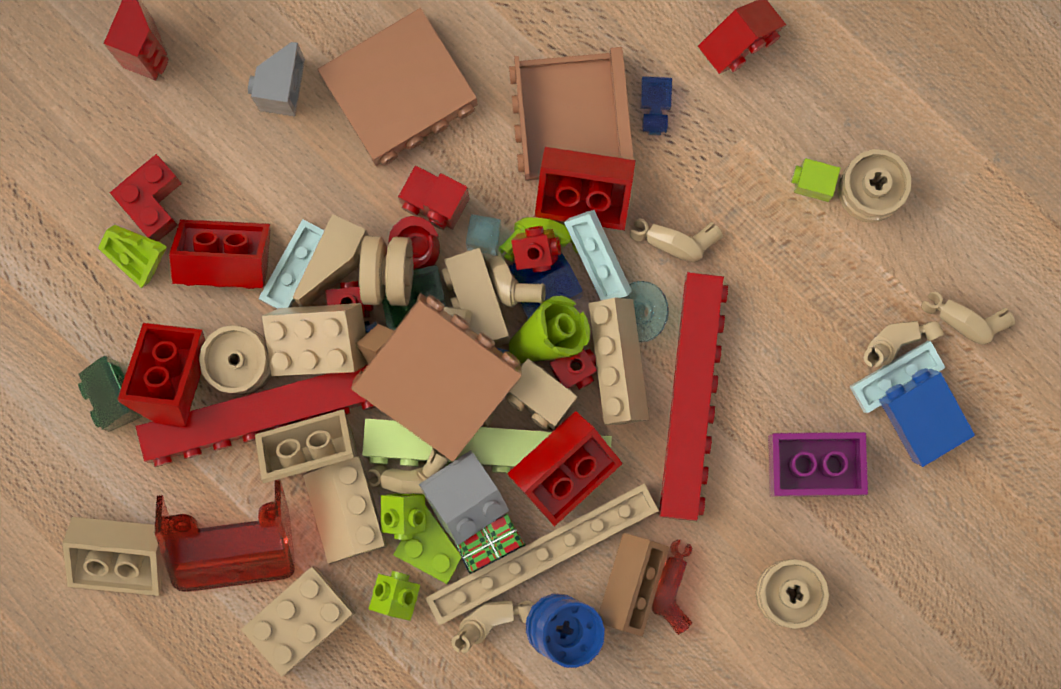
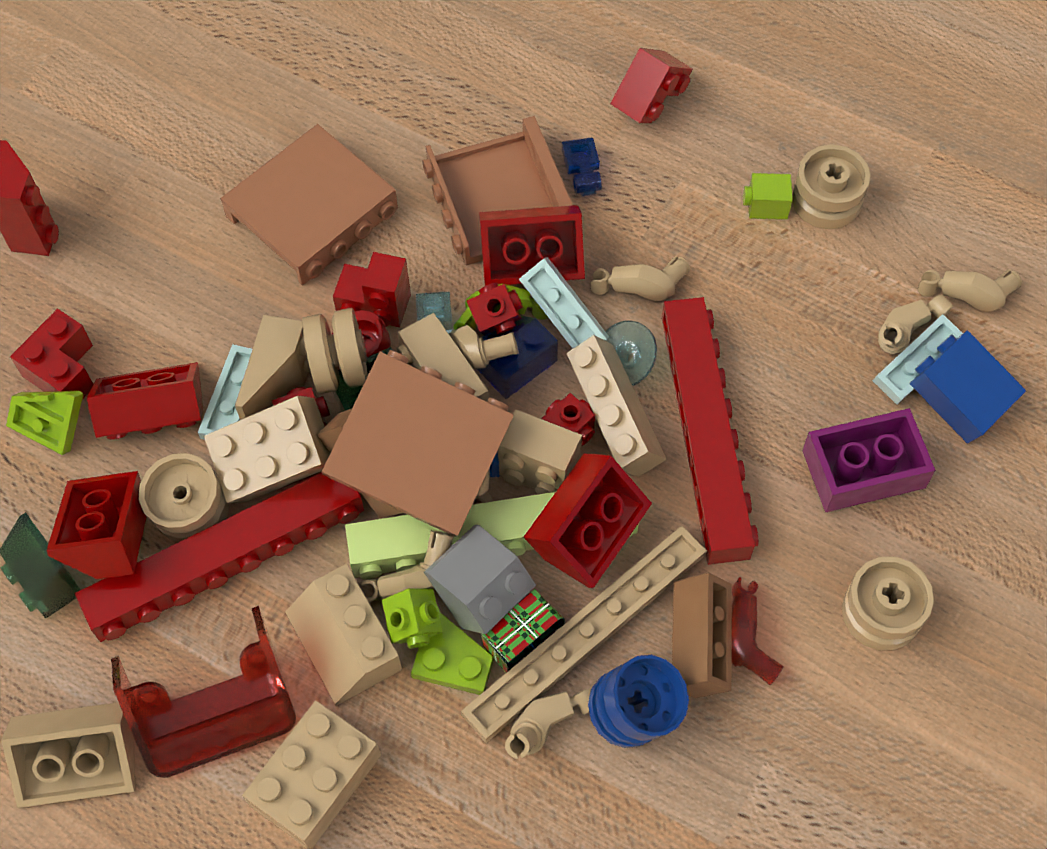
camera: 15 degrees left, 20 degrees down
(278, 81) = (180, 217): light grey slope -> none
(305, 446) = (281, 570): tan slope -> none
(394, 595) = (423, 716): lime brick -> none
(551, 332) = (536, 379): lime cone -> none

